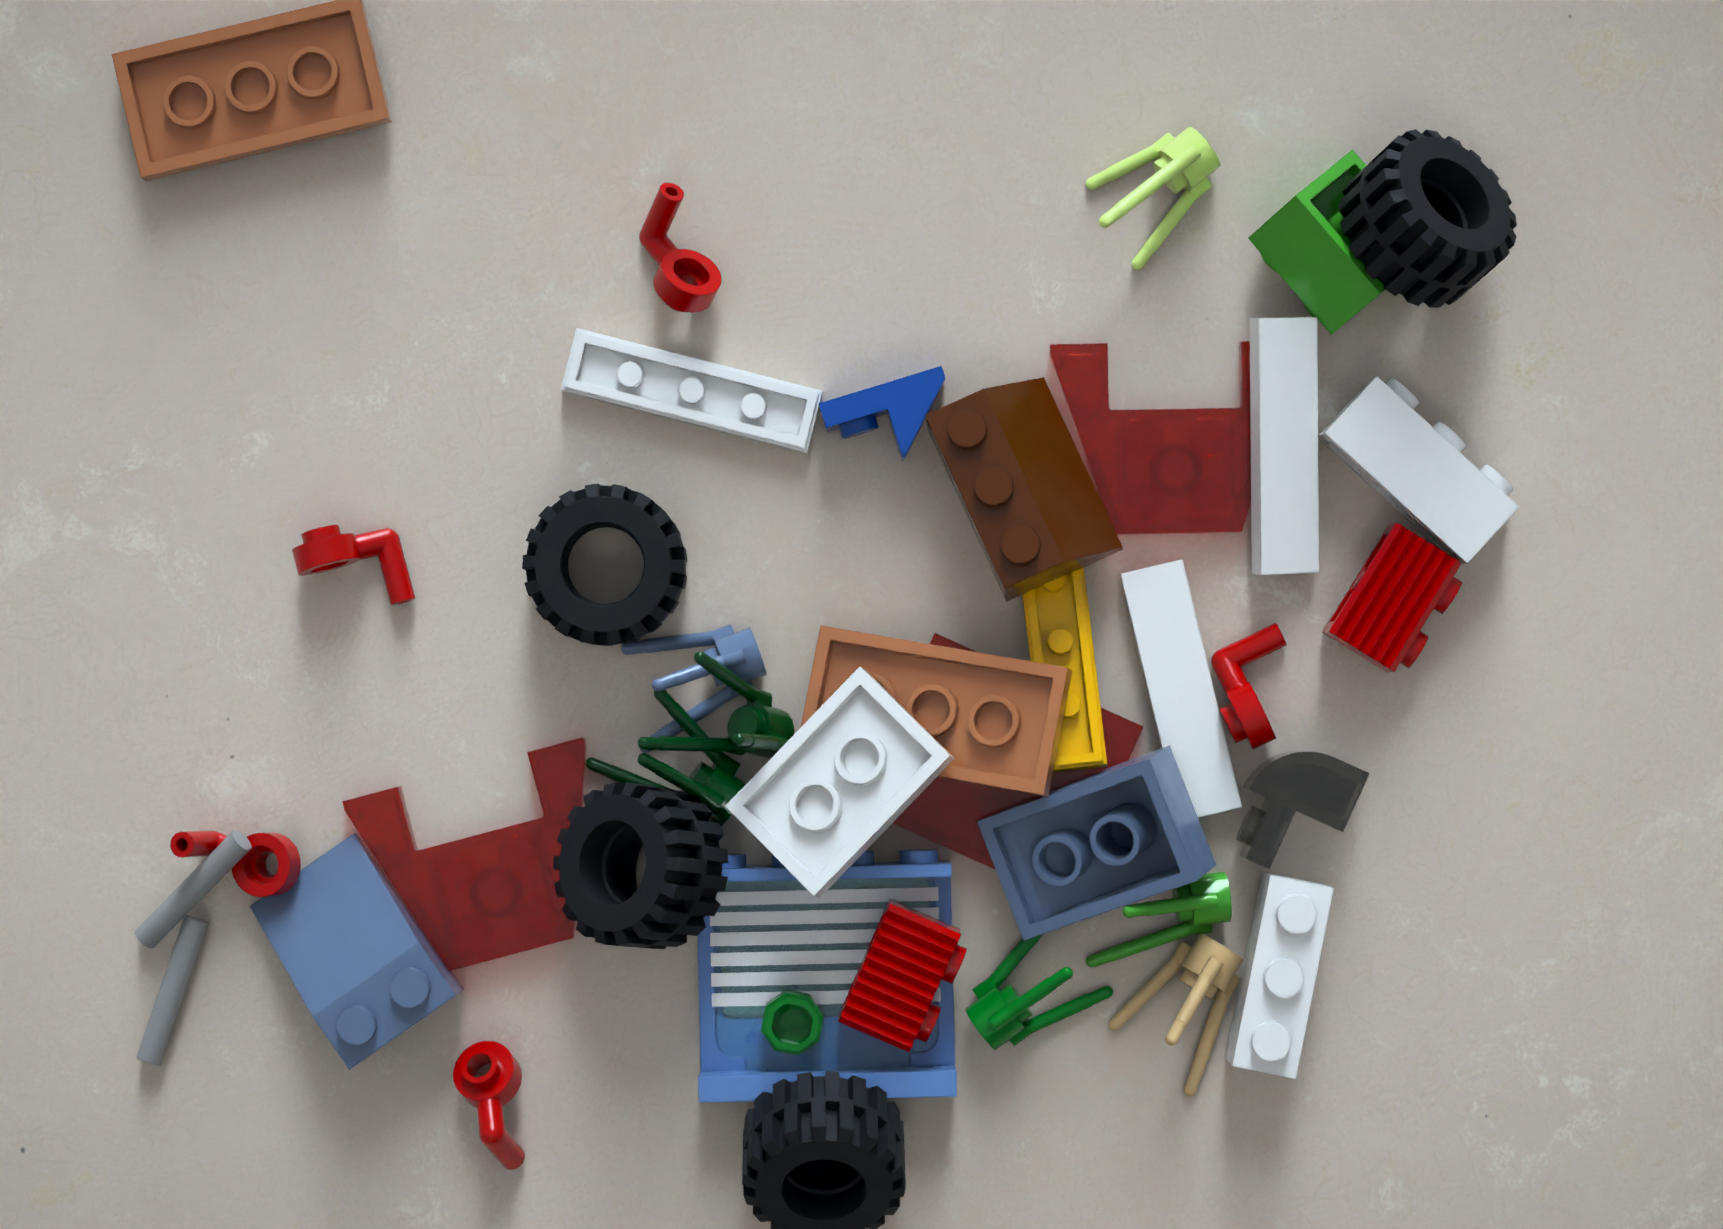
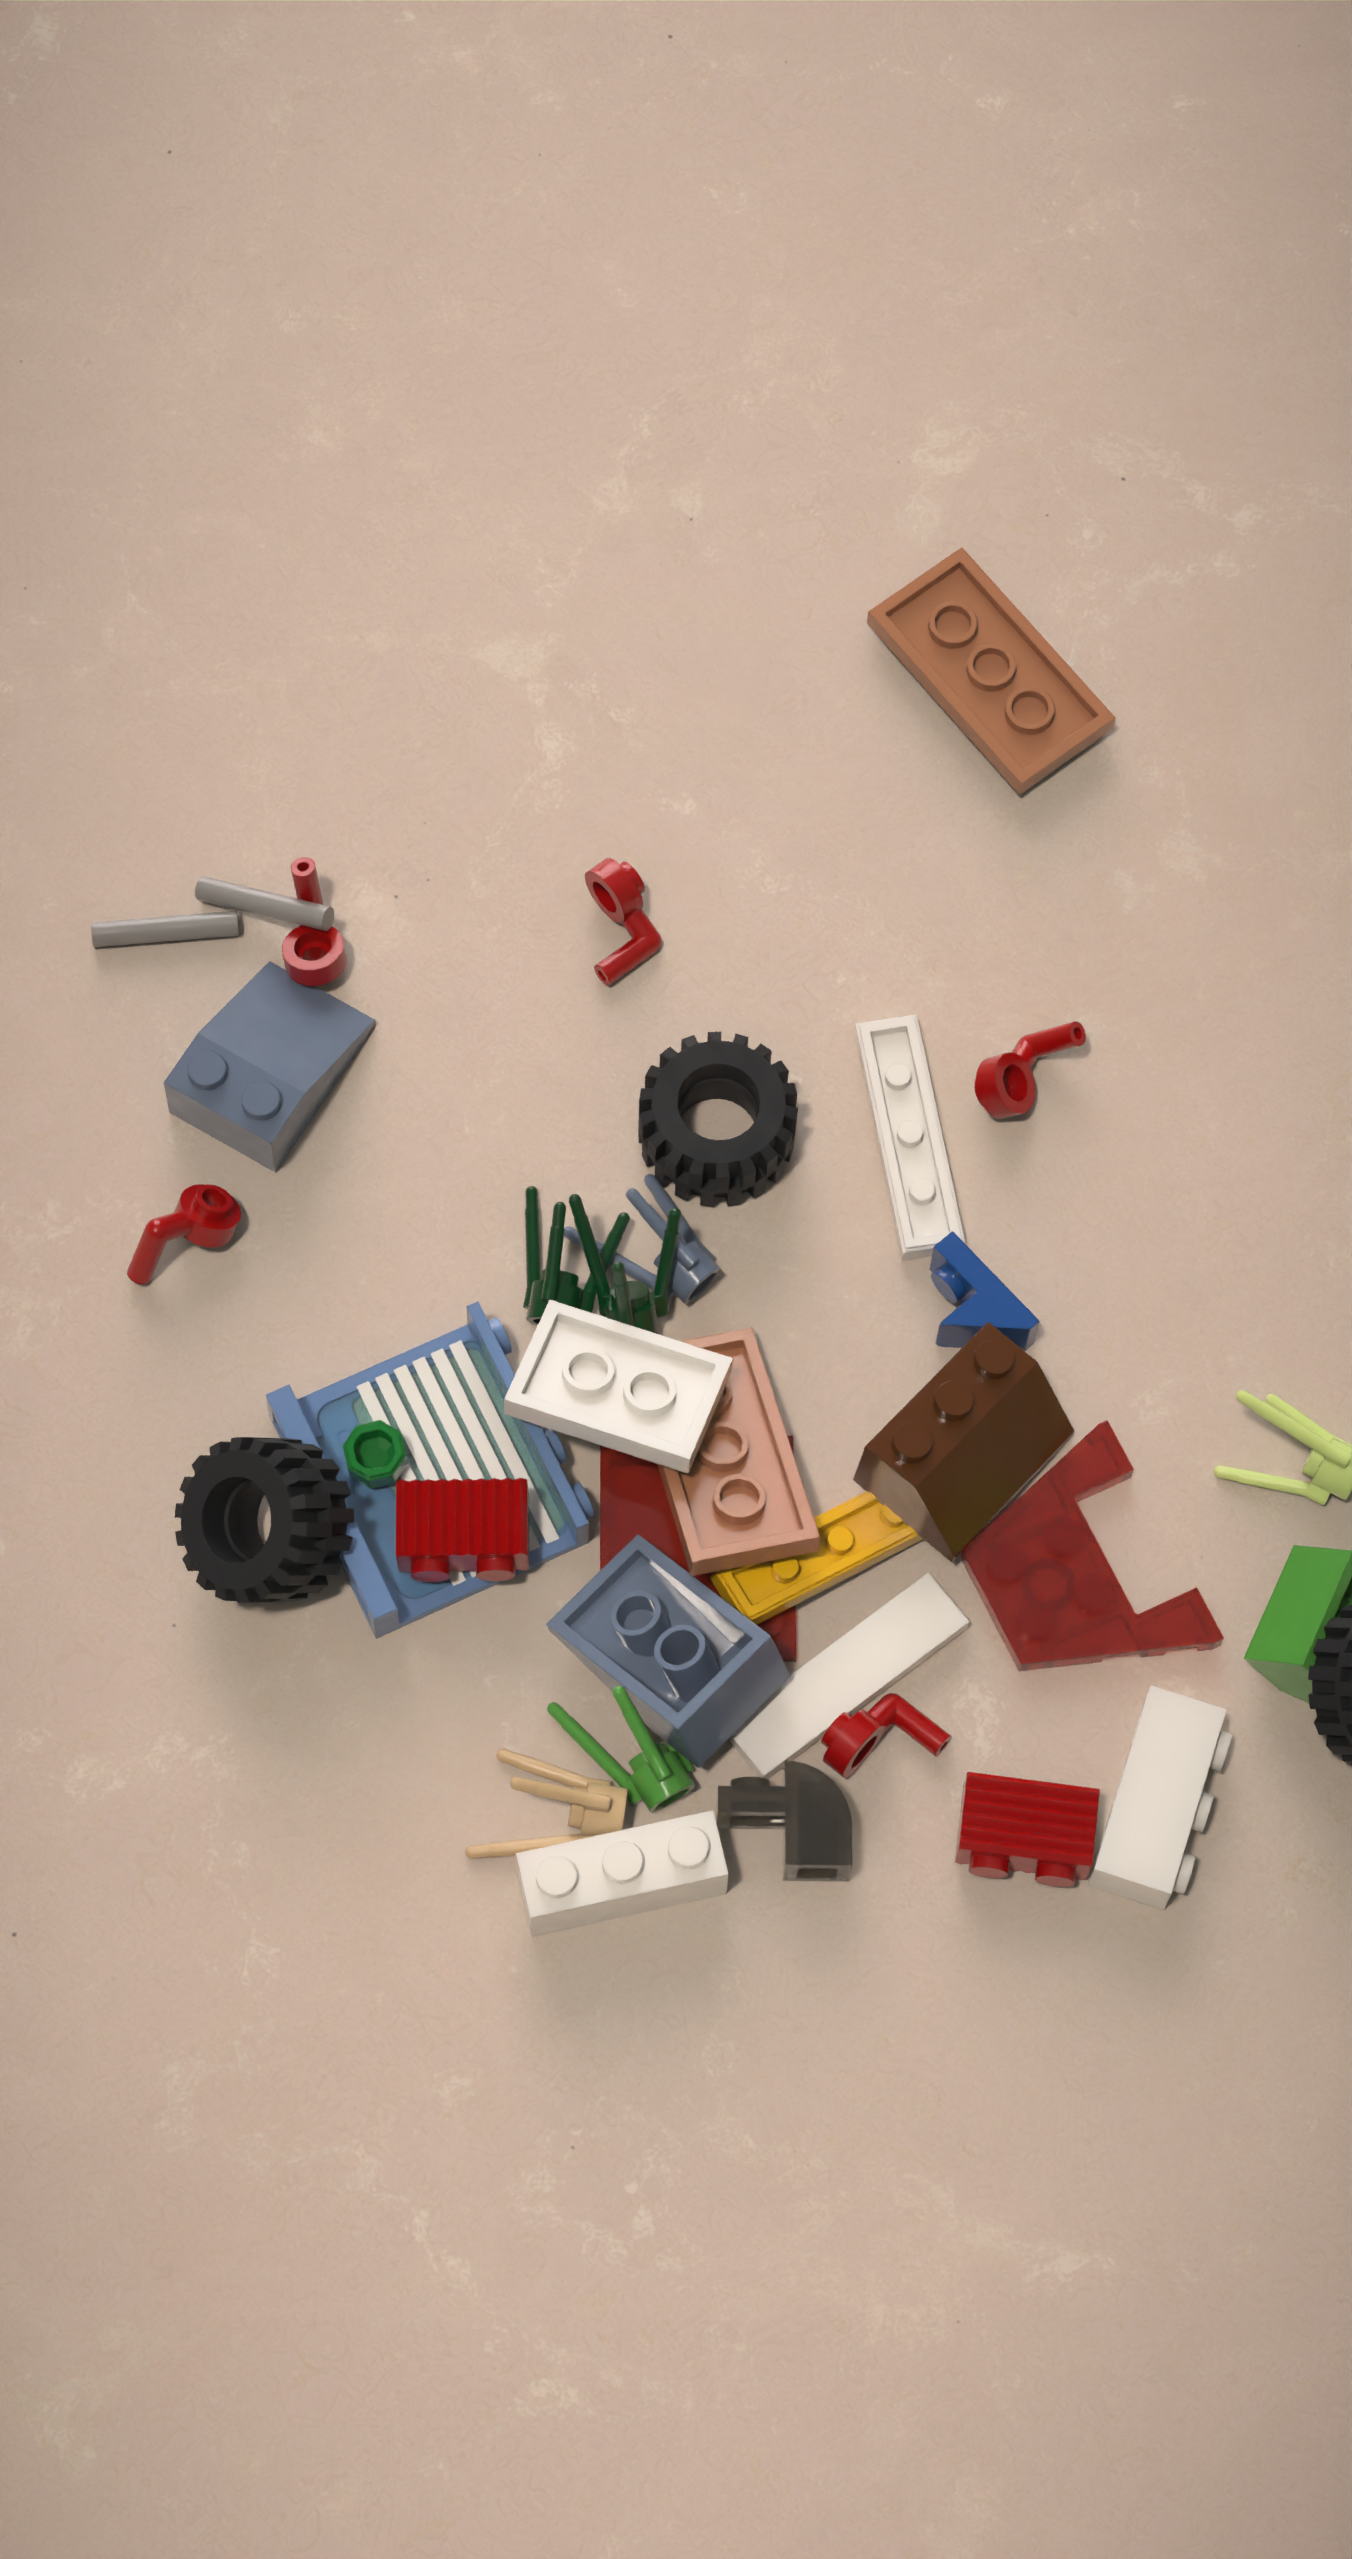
camera: 60 degrees right, 20 degrees down
(489, 889) = (382, 1158): clear red wing -> none
(678, 876) = (460, 1250): black tyre -> none
(1002, 1013) = (472, 1639): green plant -> none
(1284, 445) = (1120, 1663): white tile -> none

